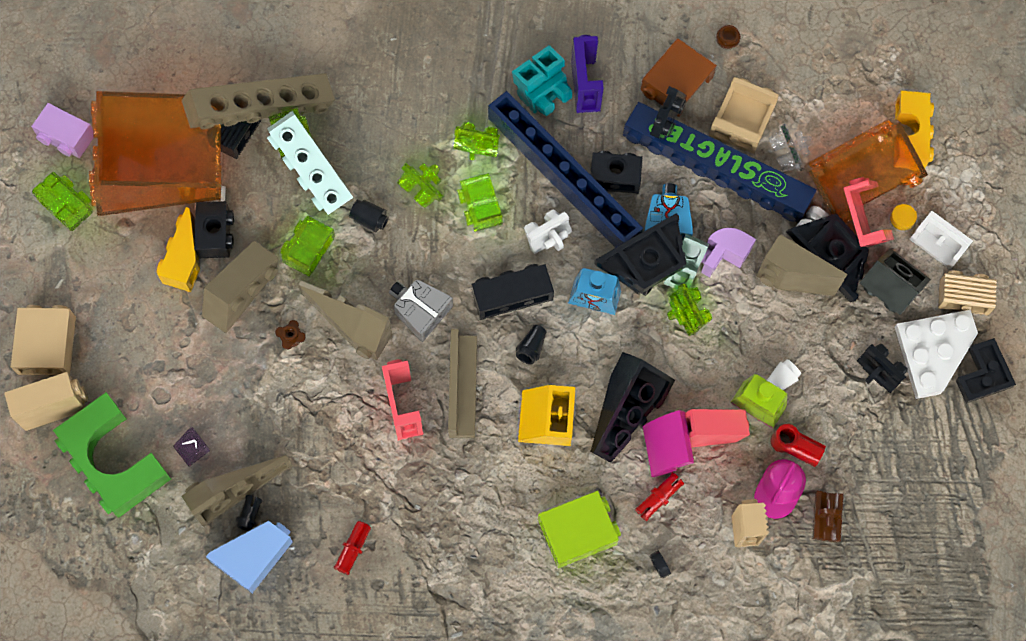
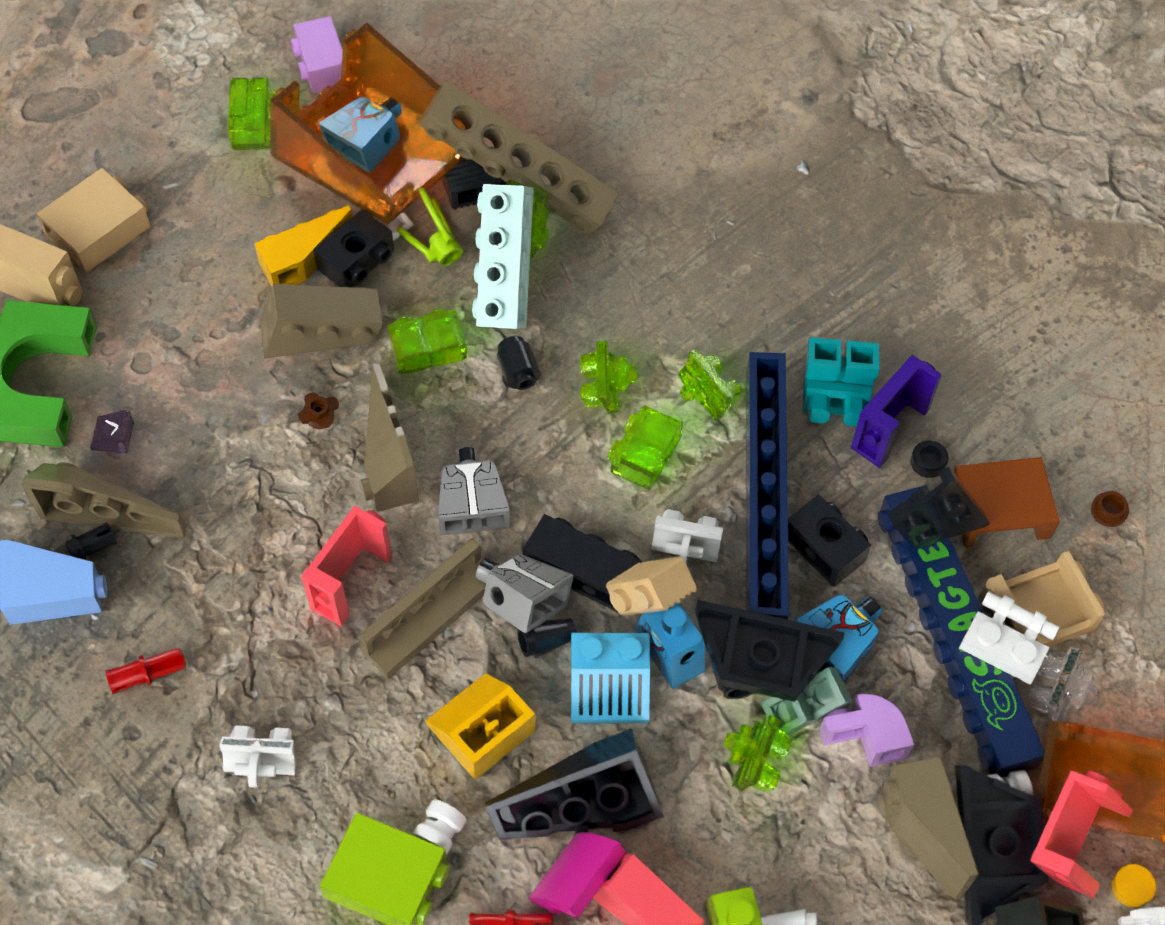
camera: 45 degrees right, 10 degrees down
(147, 156) = (363, 131): none -> dark azure torso
(258, 184) = (443, 243): none -> lime plant
(458, 535) = (256, 756): none -> white hips
(501, 332) = (524, 590): none -> light grey torso
(568, 272) = (651, 586): none -> tan brick
(579, 482) = (440, 825): none -> white wheel
(584, 336) = (610, 677): none -> medium azure slope
(620, 85) = (929, 458): none -> black tile
(753, 152) = (1005, 647): none -> white plate

